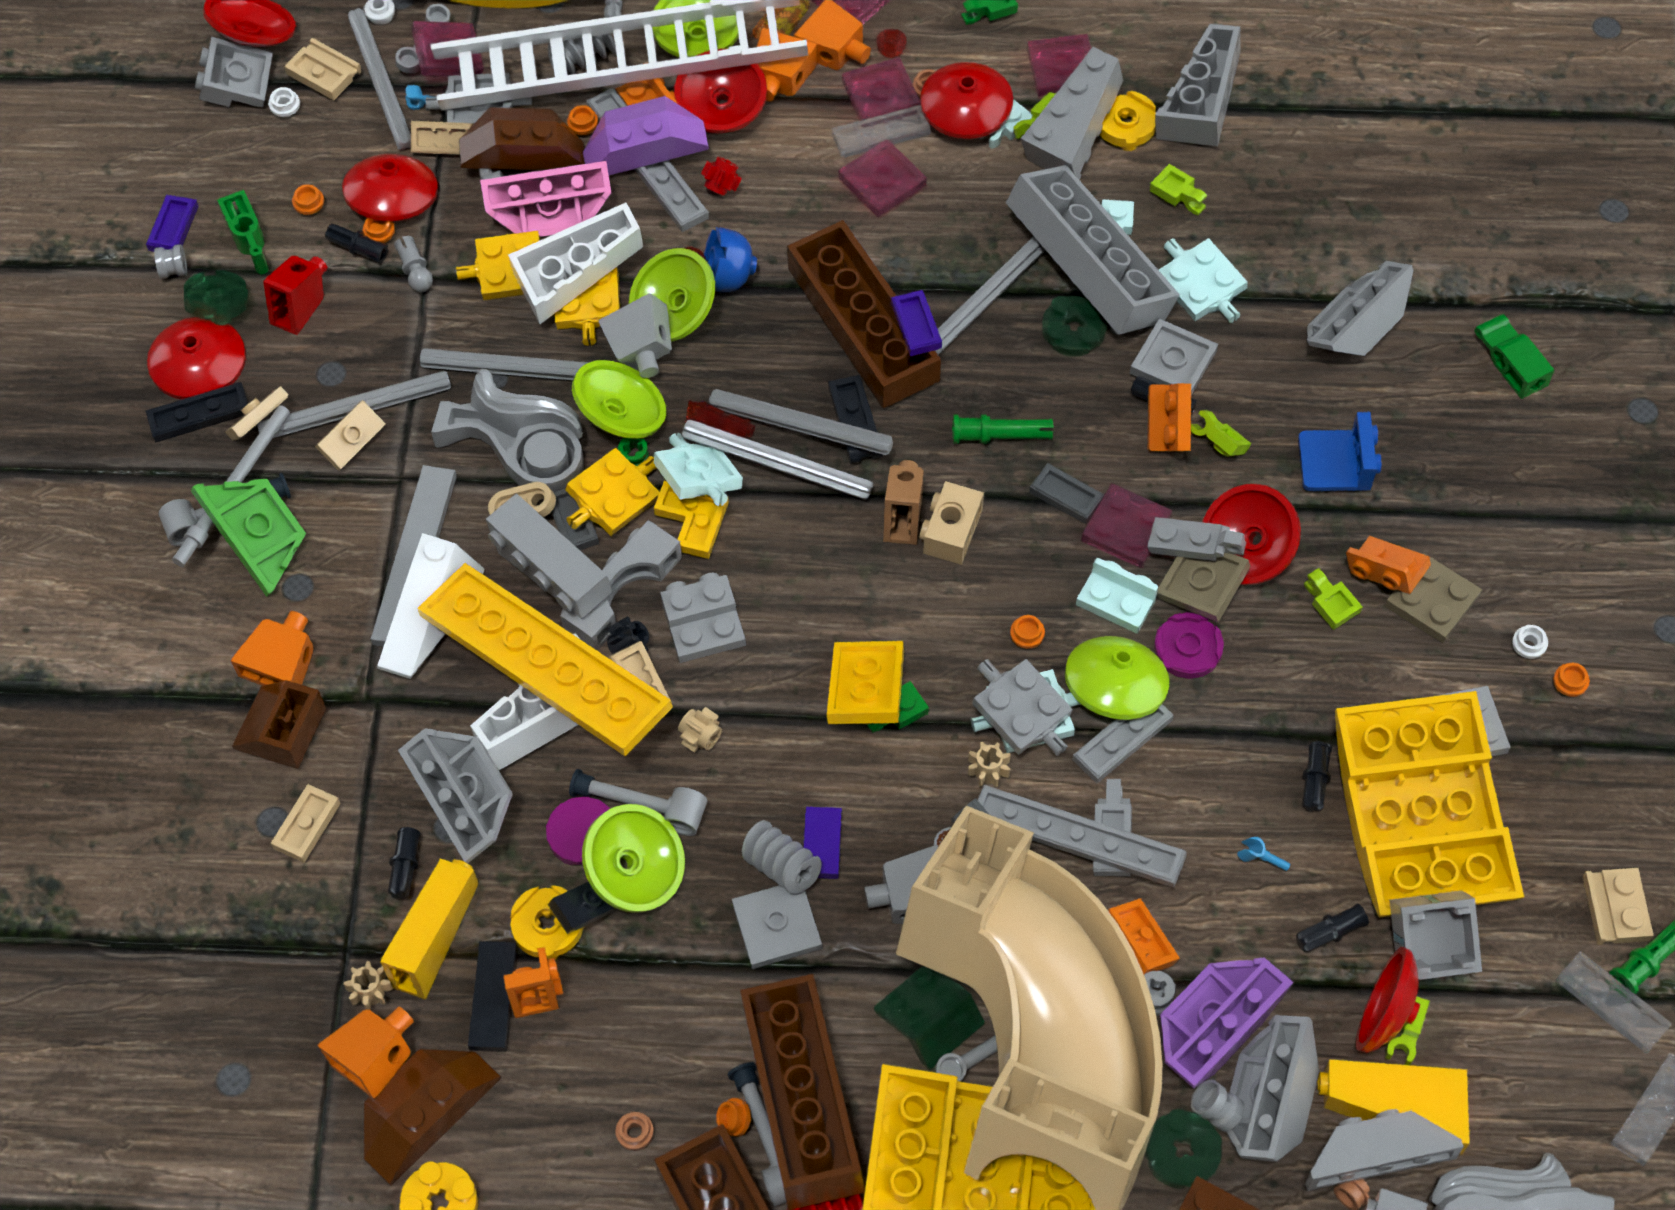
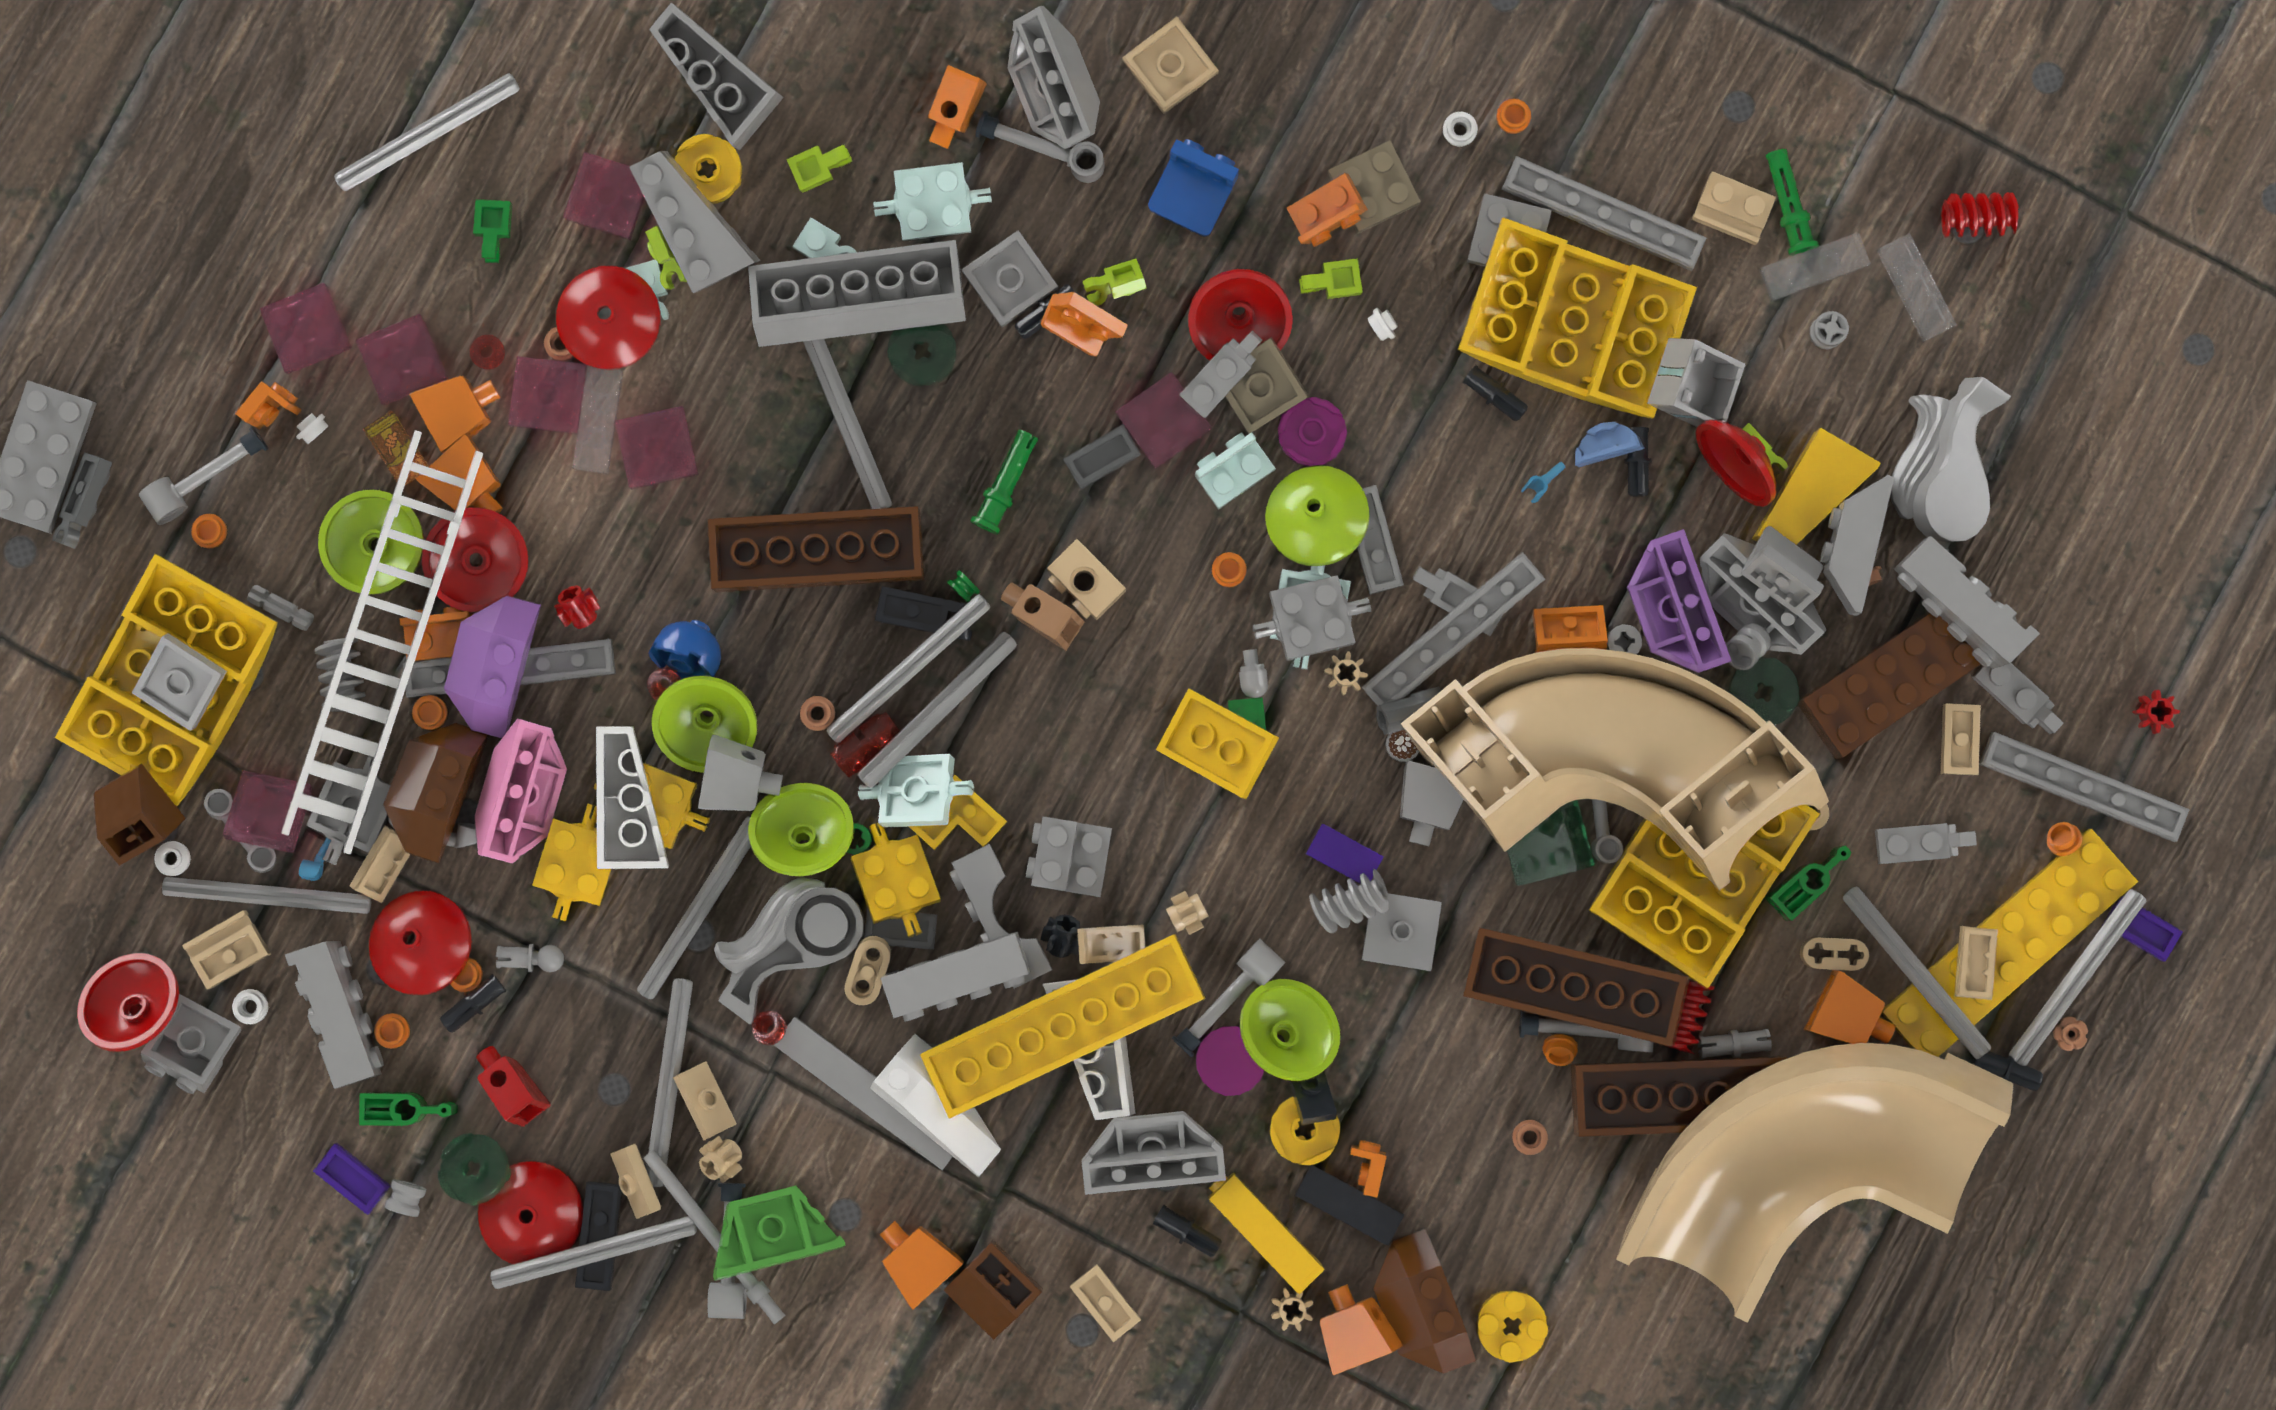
camera: 65 degrees left, 25 degrees up
(180, 405) = (593, 1252): none -> light grey axle
(303, 465) = (720, 1159): none -> tan gear
(306, 150) = (336, 1012): none -> light grey wedge
(436, 454) = (761, 1024): none -> clear red plate
(726, 371) = (806, 713): none -> nougat plate
(897, 433) = (963, 586): none -> green bush
(916, 322) = (868, 509): dark purple tile -> none
(944, 692) = (1253, 675): none -> light grey cylinder
(1292, 253) = (955, 89): none -> orange torso
(1305, 356) = (991, 128): none -> light grey piece
(1309, 1085) = (1784, 571): none -> light grey bracket
(1318, 655) = (1383, 324): none -> white plate
(1331, 890) = (1606, 442): none -> medium blue plate
(1429, 399) = (1170, 65): none -> tan tile
(1537, 798) = (1604, 213): none -> light grey tile
(1567, 1035) = (1831, 323): none -> light grey wheel

